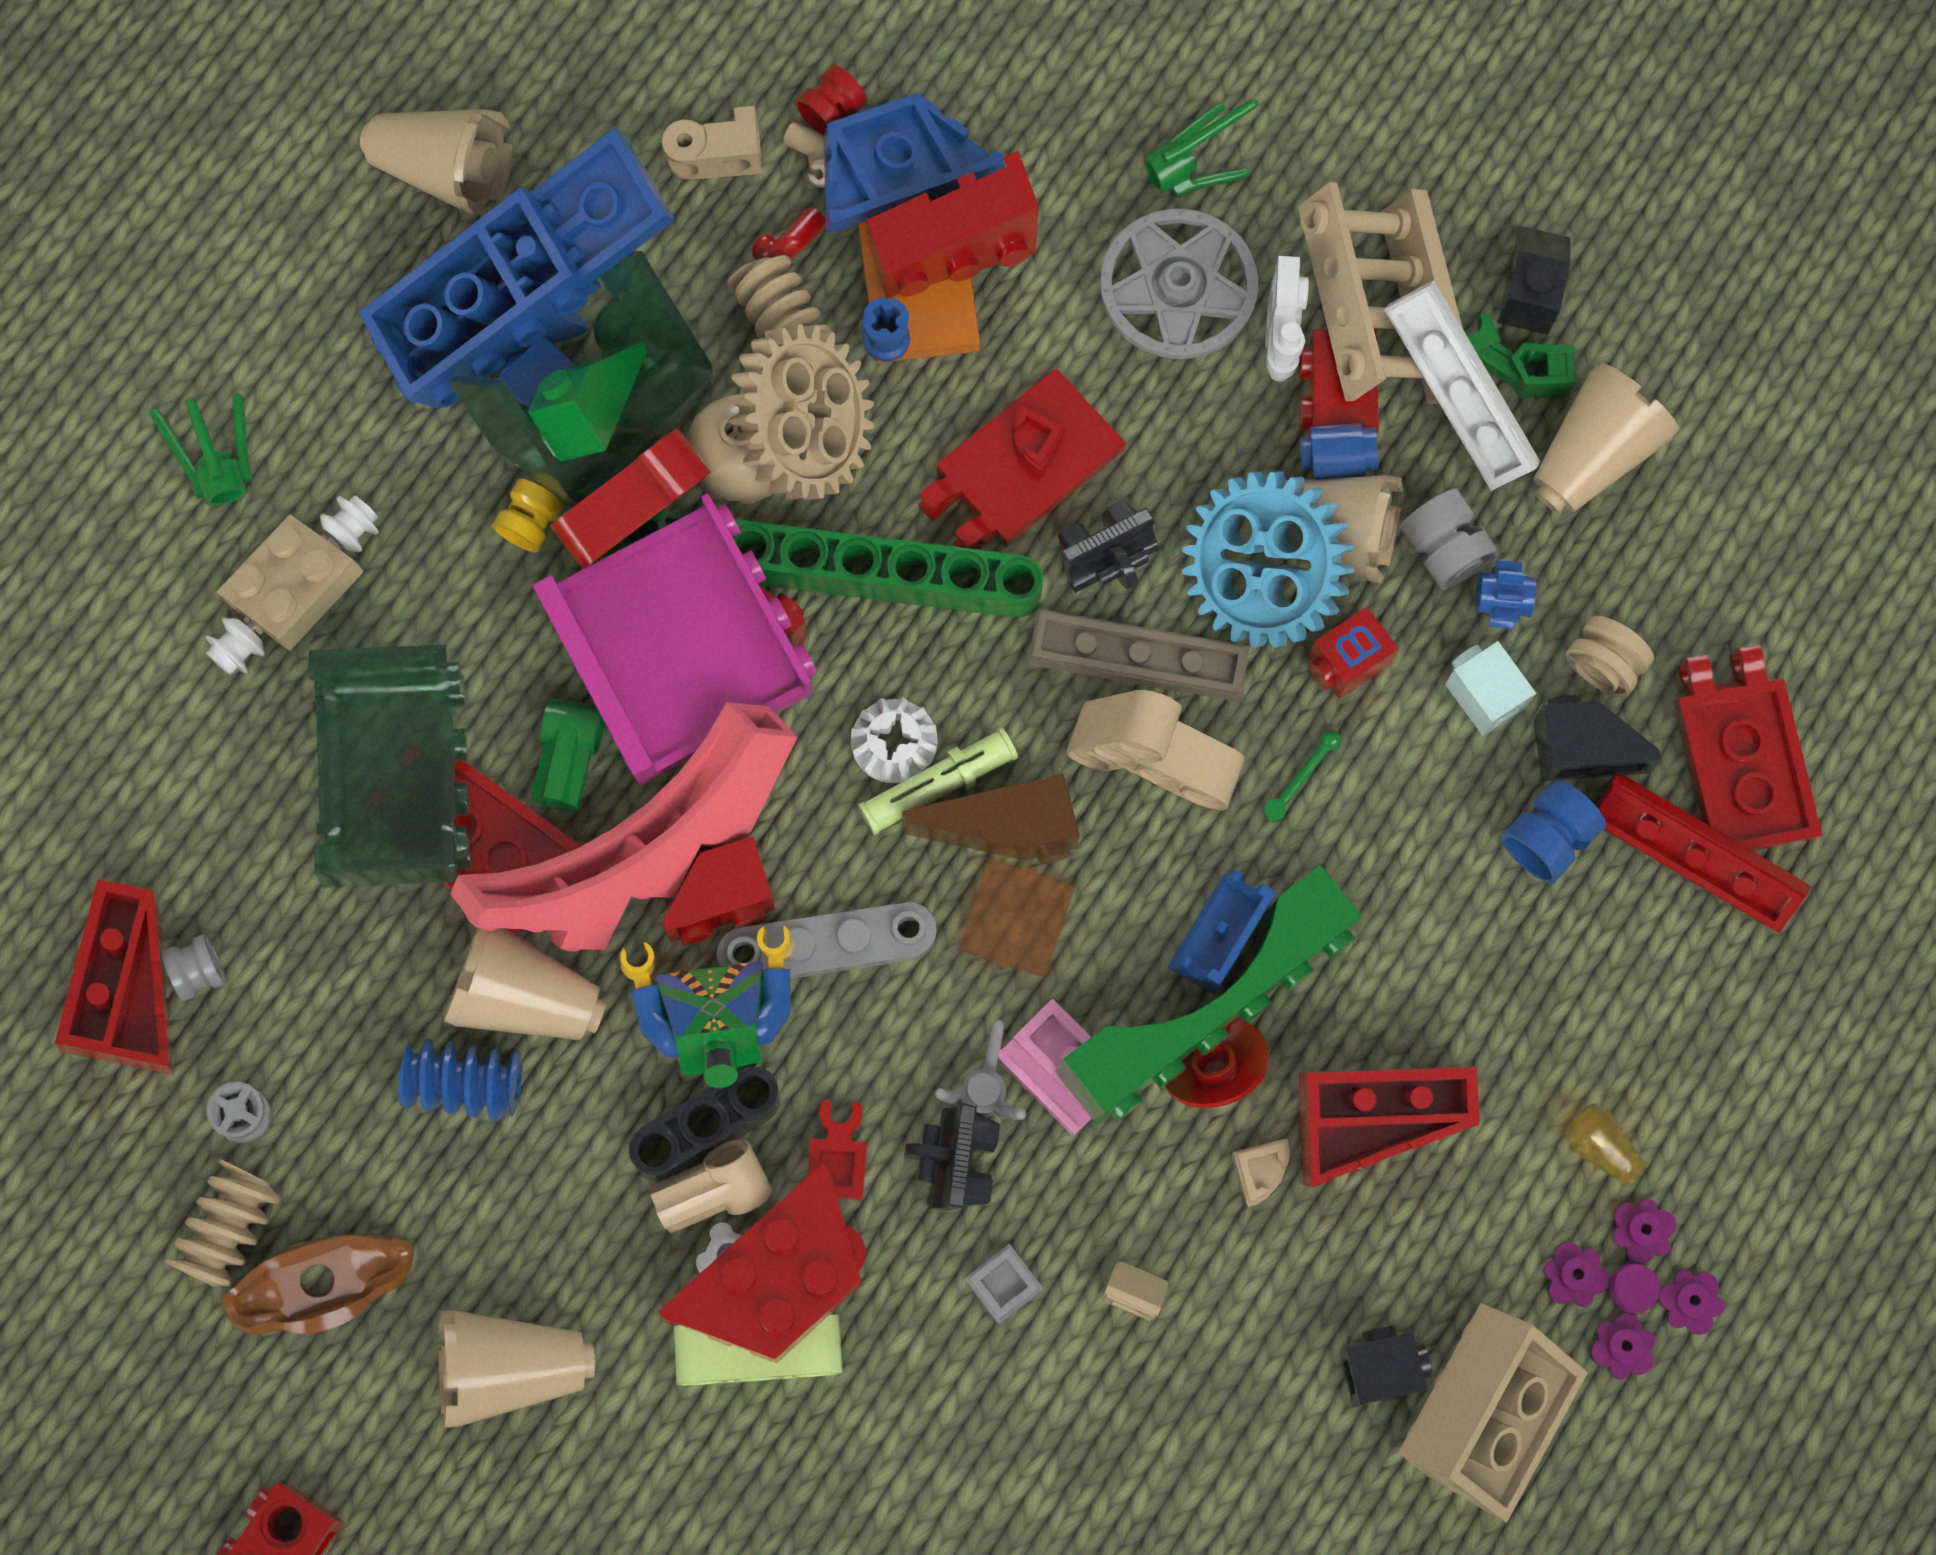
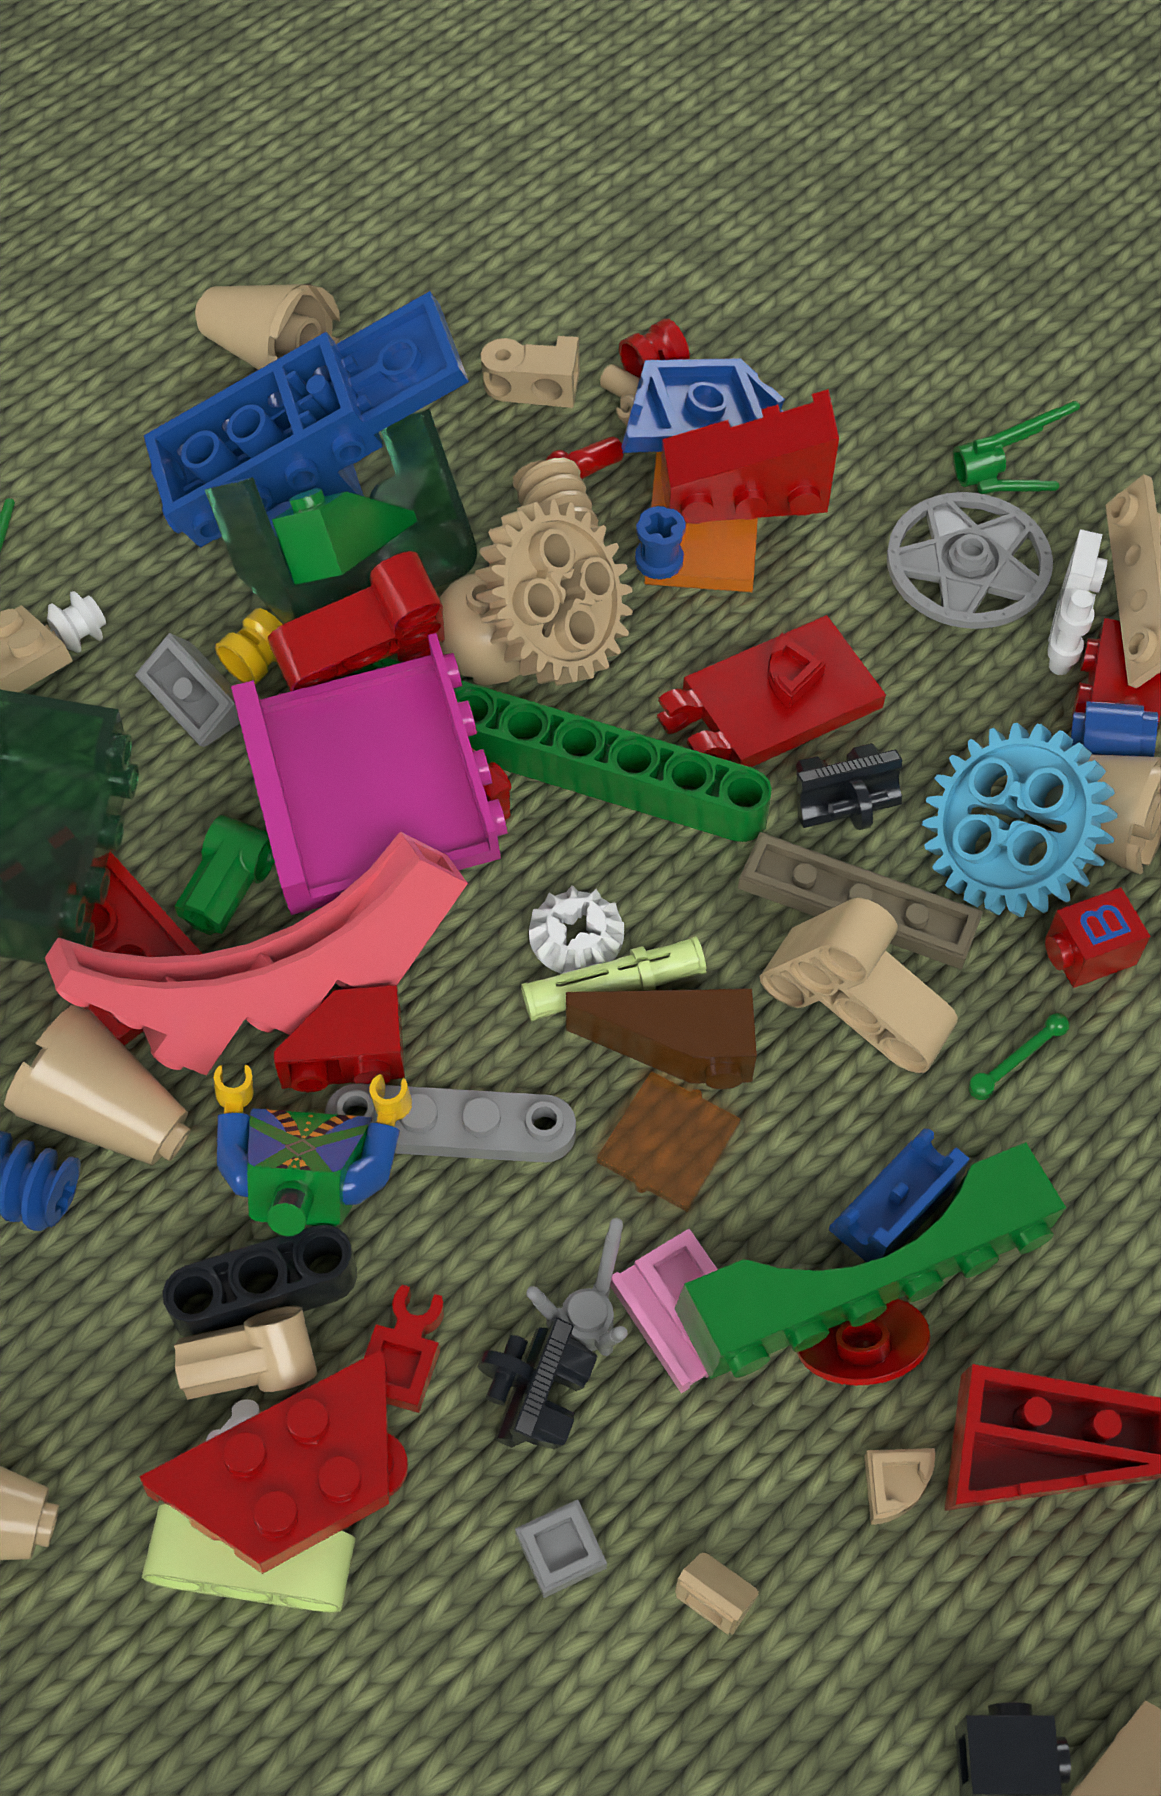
camera: 15 degrees right, 15 degrees down
(479, 568) = (190, 689): none -> light grey slope

